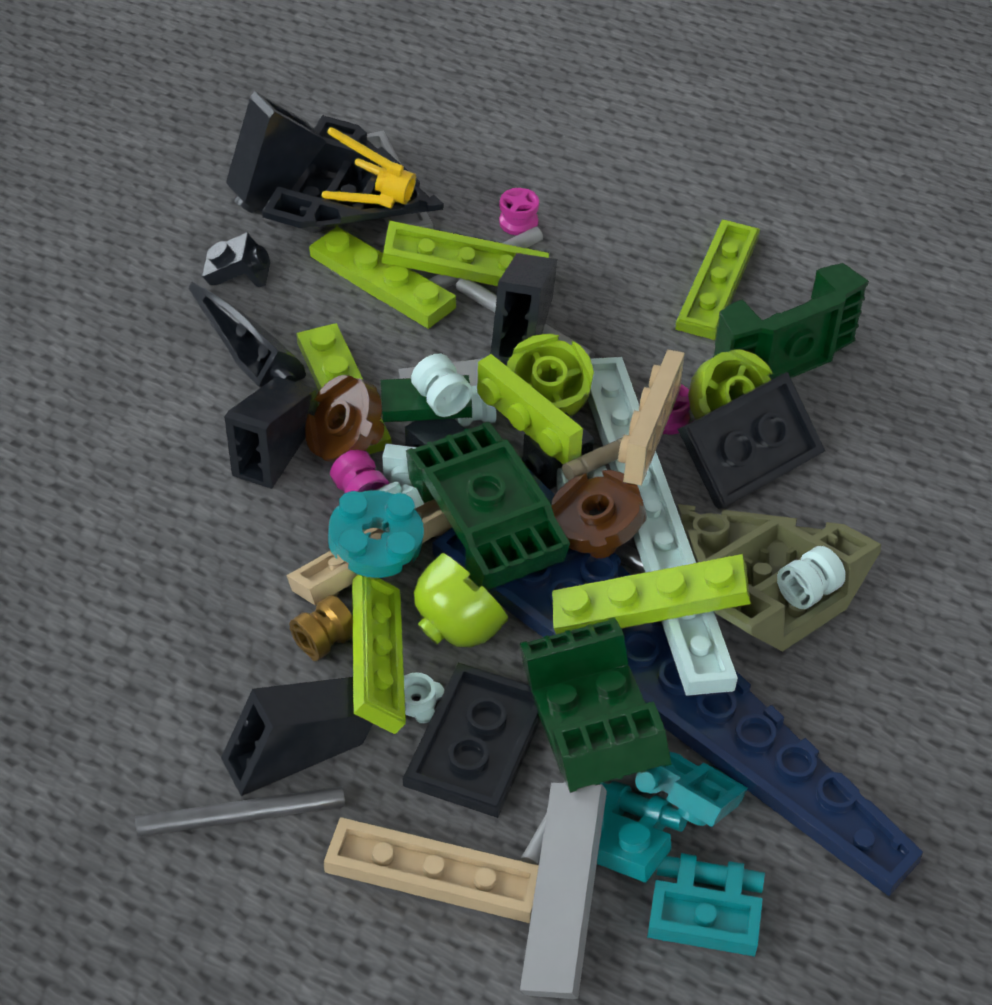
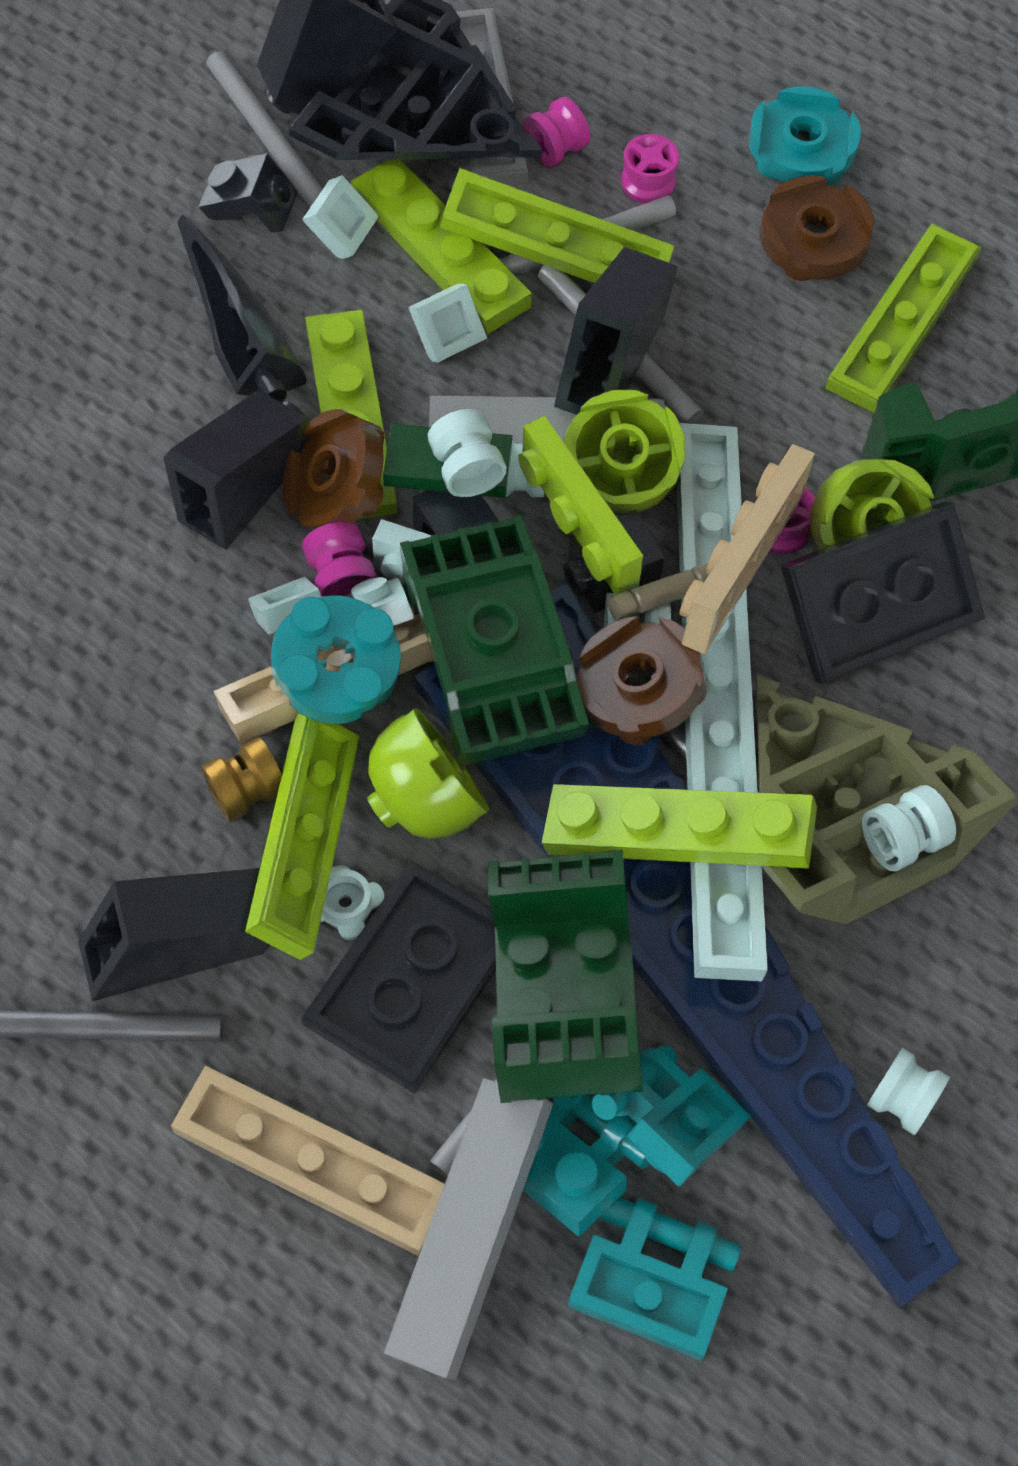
camera: 10 degrees right, 15 degrees up
(240, 224) = (264, 127): none -> light grey bar
(307, 268) = (340, 217): none -> light aqua plate
(318, 516) = (276, 604): none -> light aqua plate
(391, 179) = (474, 109): yellow plant -> none
(400, 321) = (447, 322): none -> light aqua plate
(453, 193) = (558, 130): none -> dark pink wheel
(636, 189) = (811, 110): none -> teal plate
(643, 248) = (813, 254): none -> reddish brown plate
(855, 750) = (908, 1091): none -> light aqua wheel

